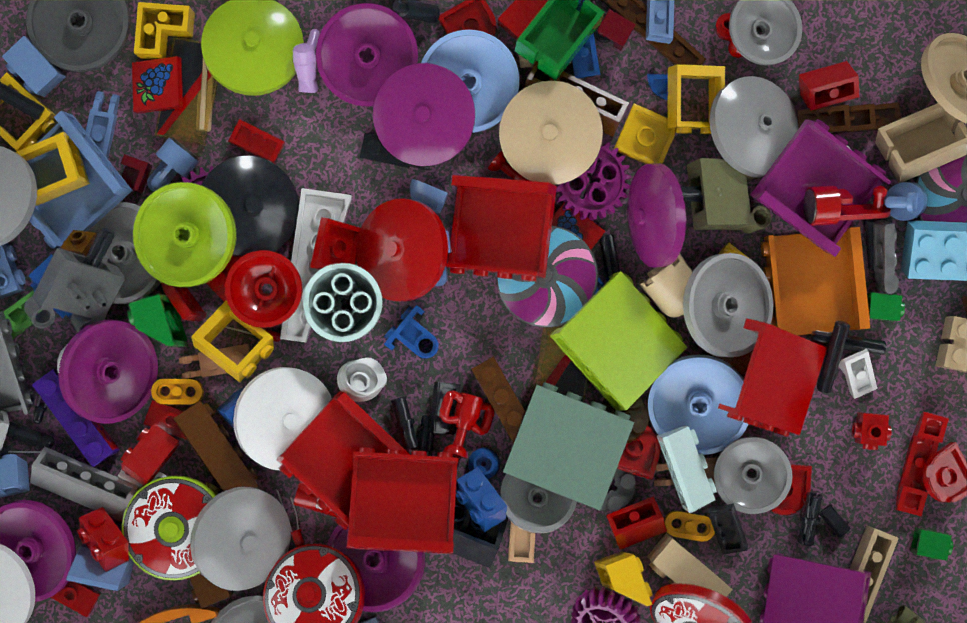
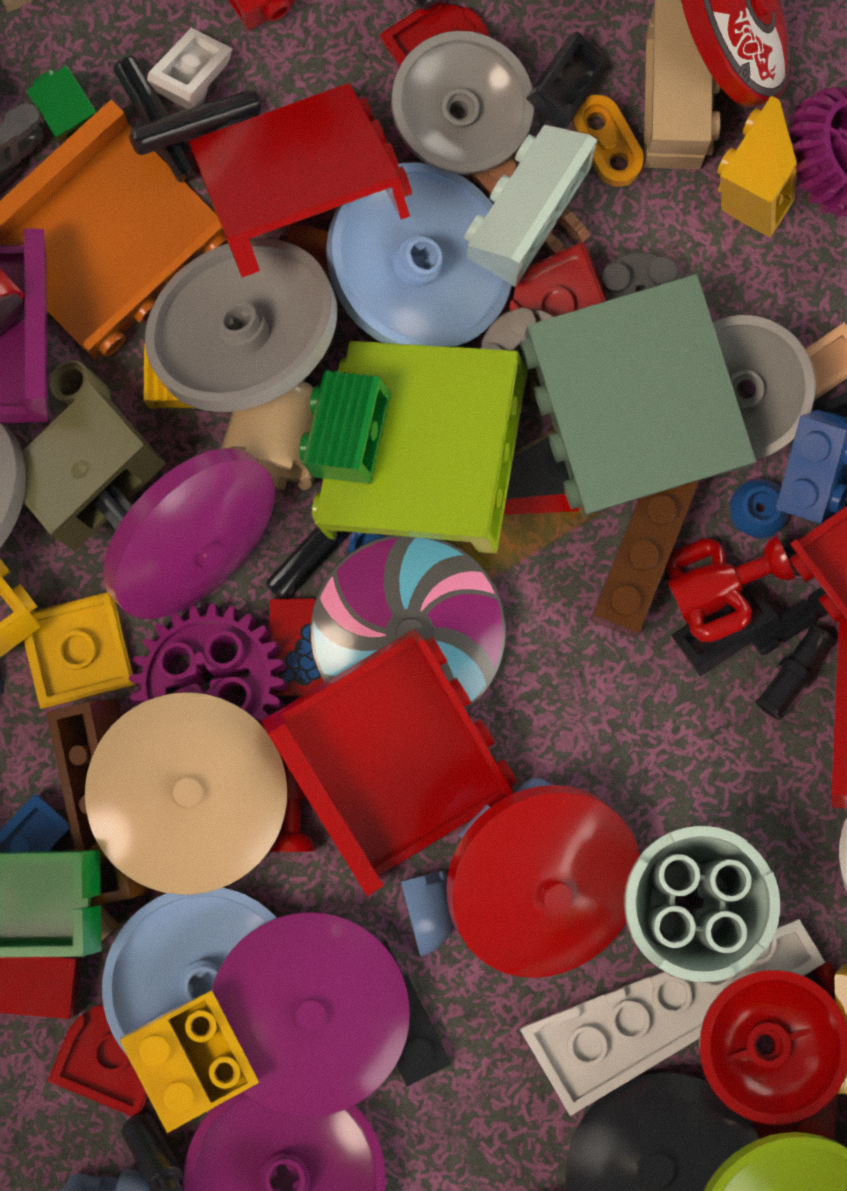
camera: 130 degrees left, 5 degrees down
(334, 244) = (618, 990): red tile -> none
(361, 379) = (785, 788): white hat -> none
(411, 333) = (656, 768): blue pin -> none
(443, 50) = (188, 1060): none -> yellow slope
(636, 523) = (666, 216): red brick -> none
(650, 314) = (345, 427): none -> green brick

